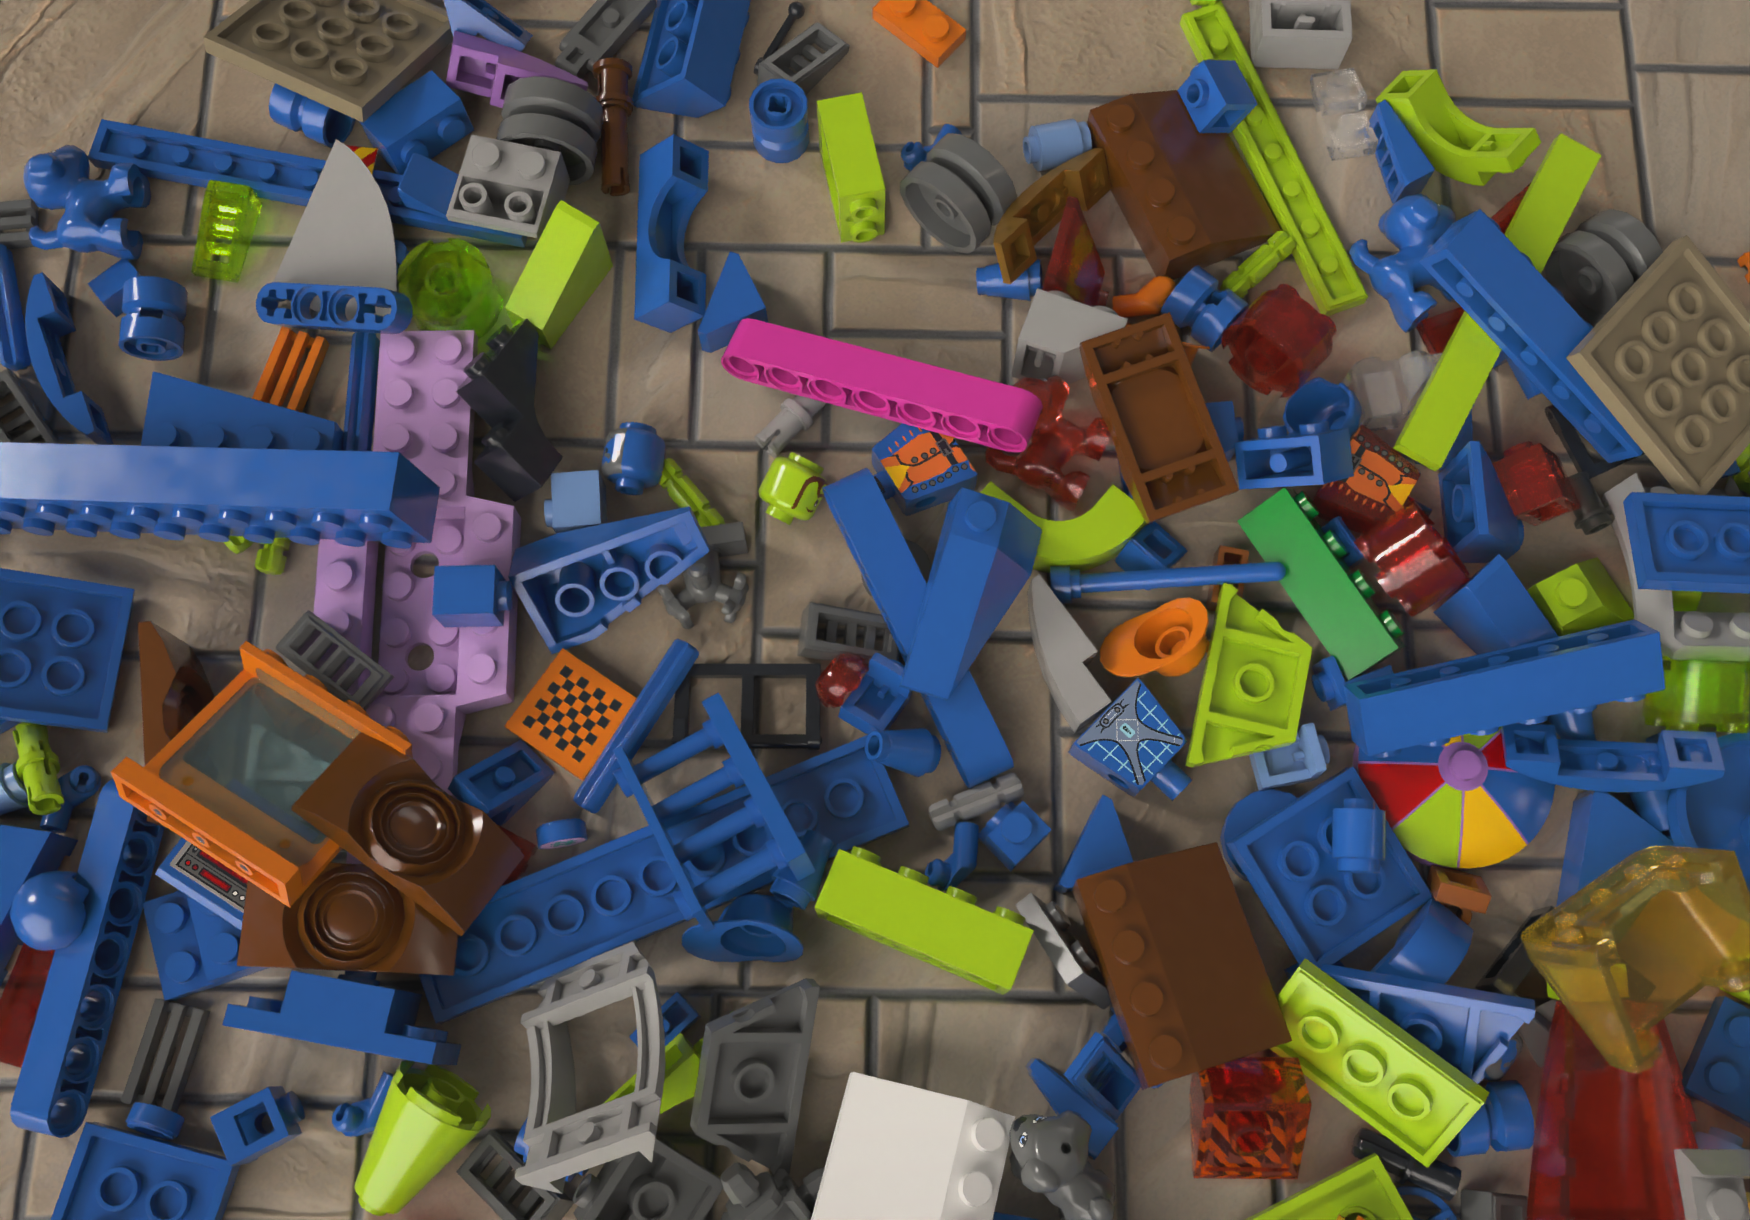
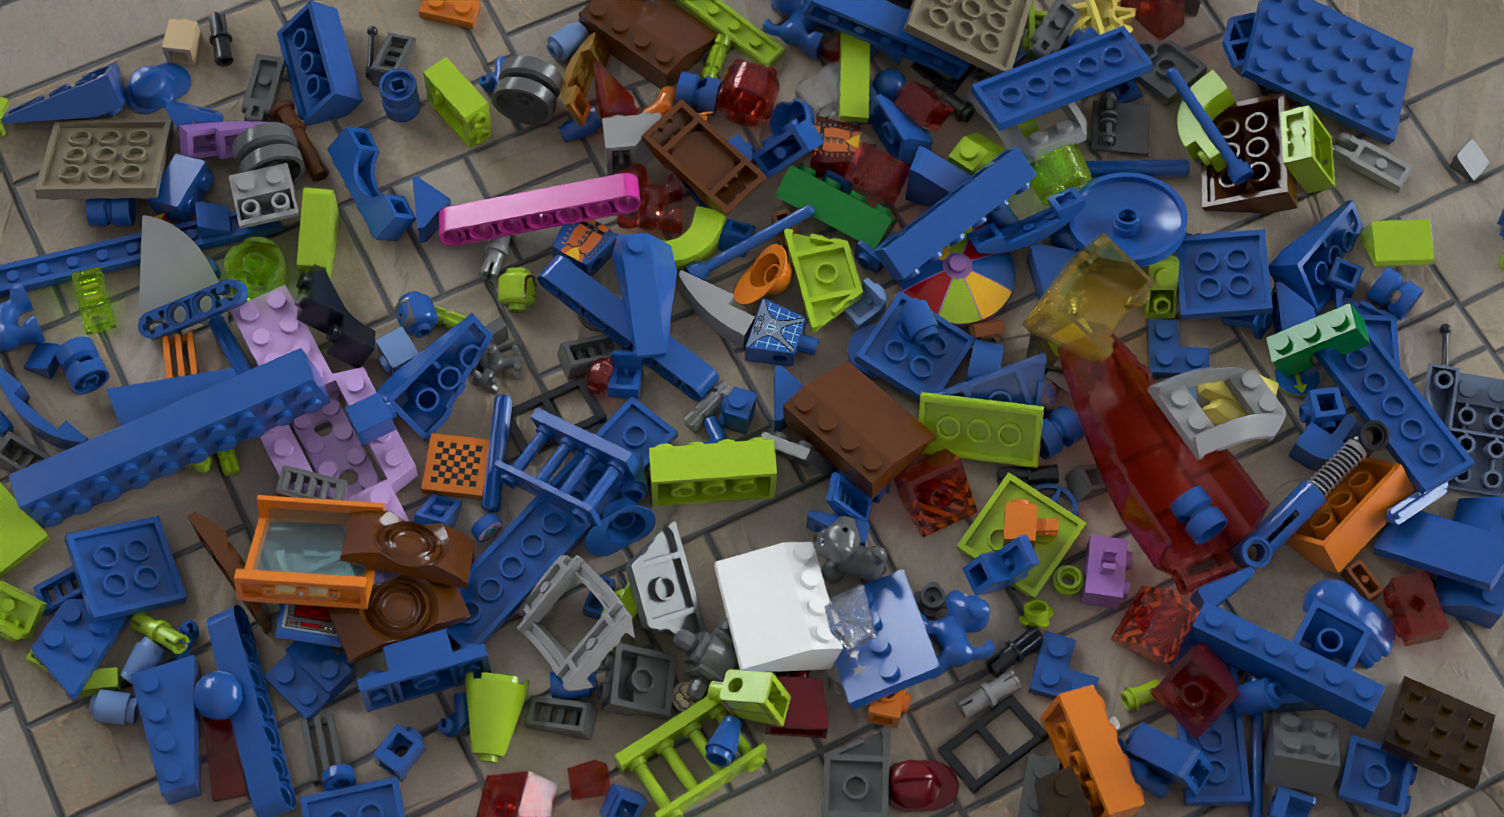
camera: 30 degrees left, 10 degrees down
(906, 750) = (657, 394): blue cone -> none
(1499, 424) = (888, 83): none -> blue piece

